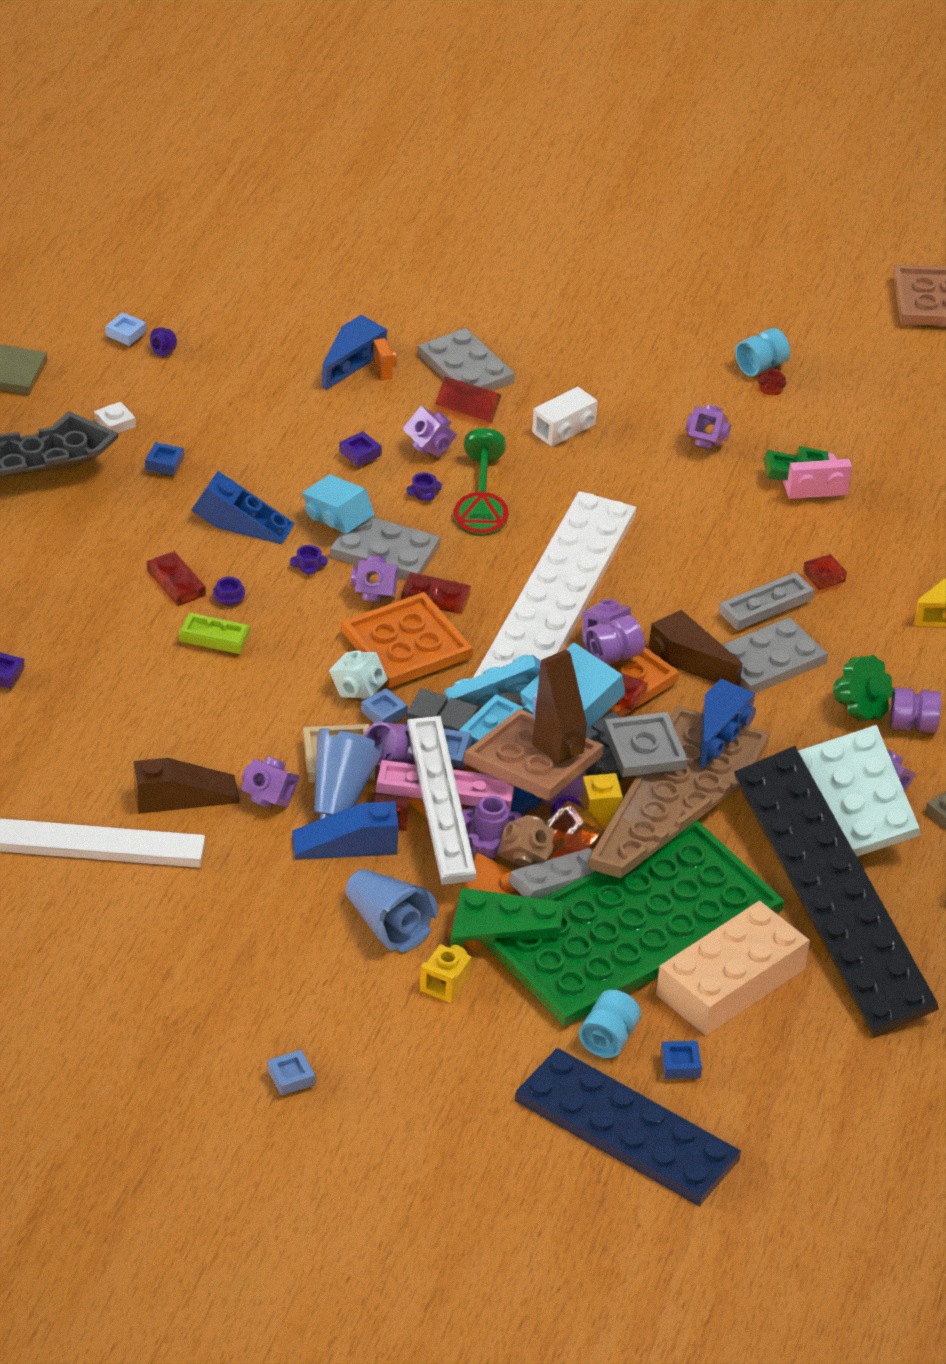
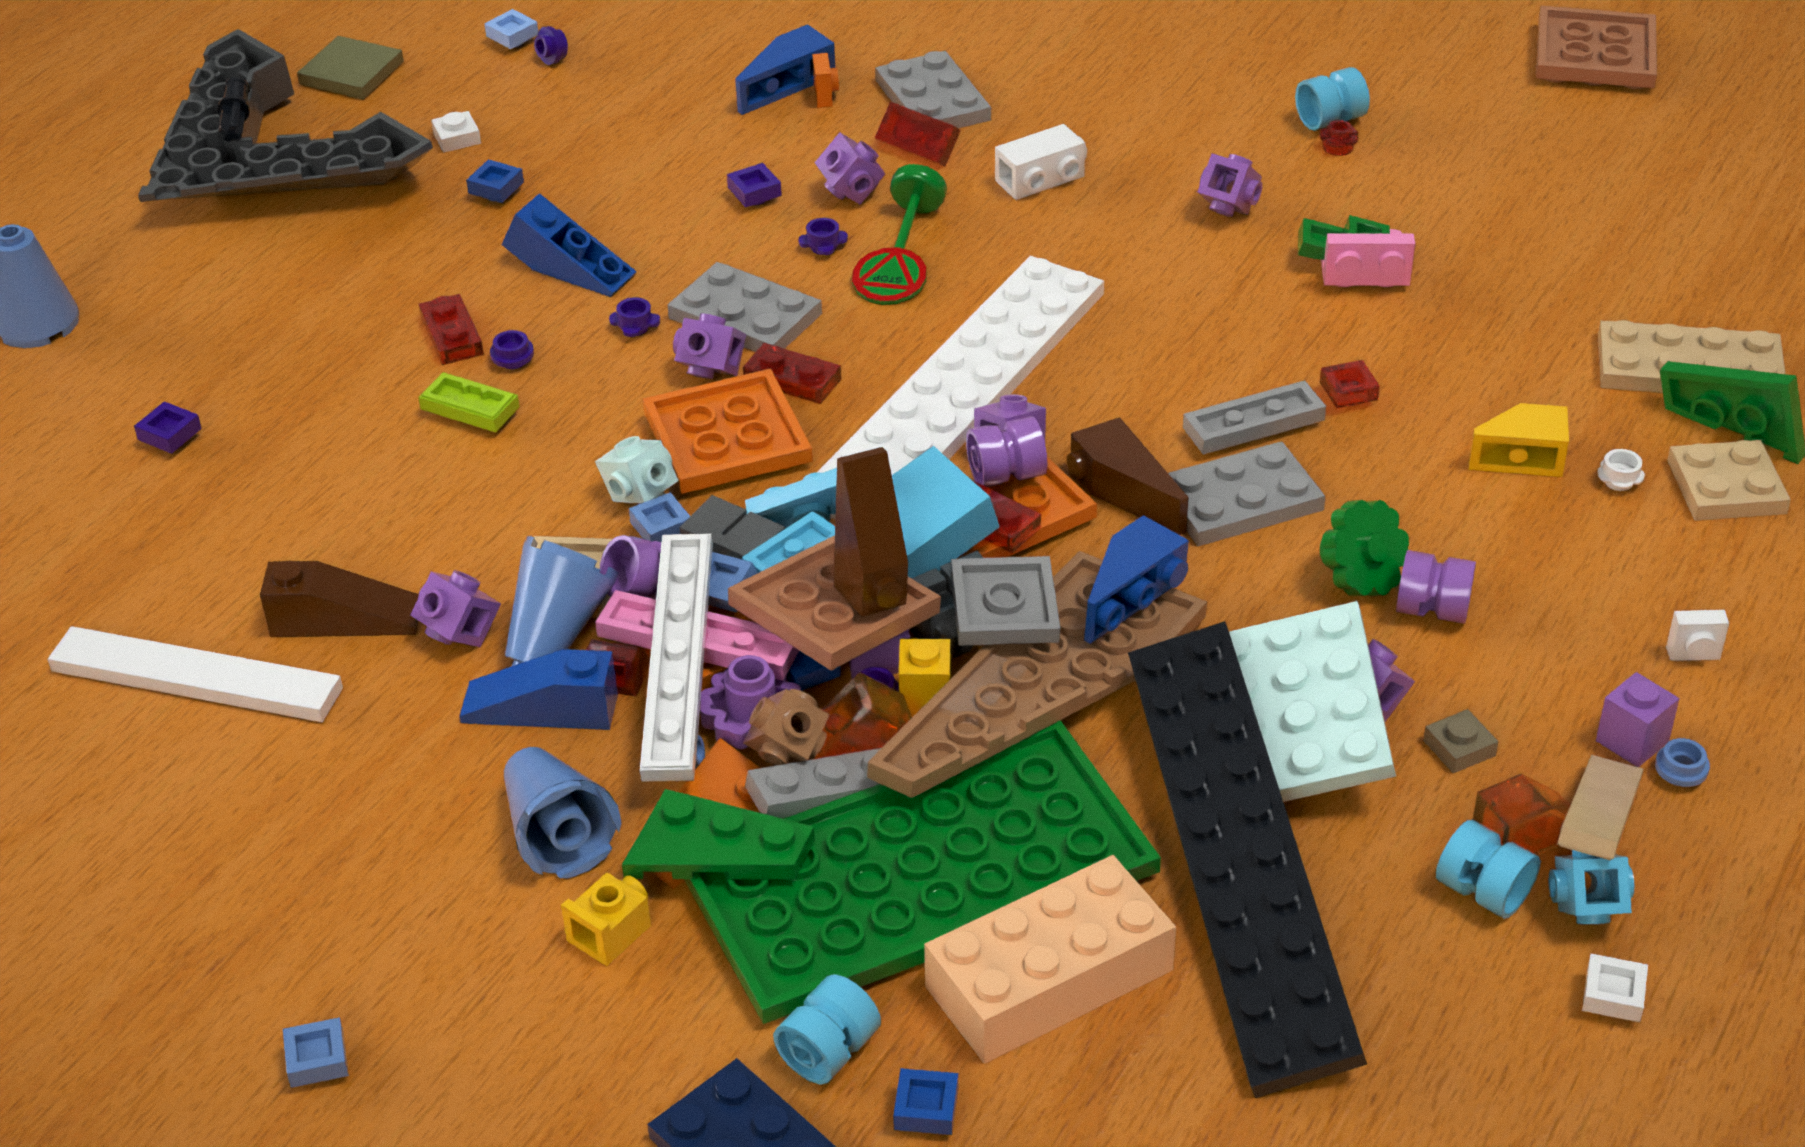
camera: 15 degrees right, 0 degrees up
(338, 503) = (691, 247): medium azure brick -> none

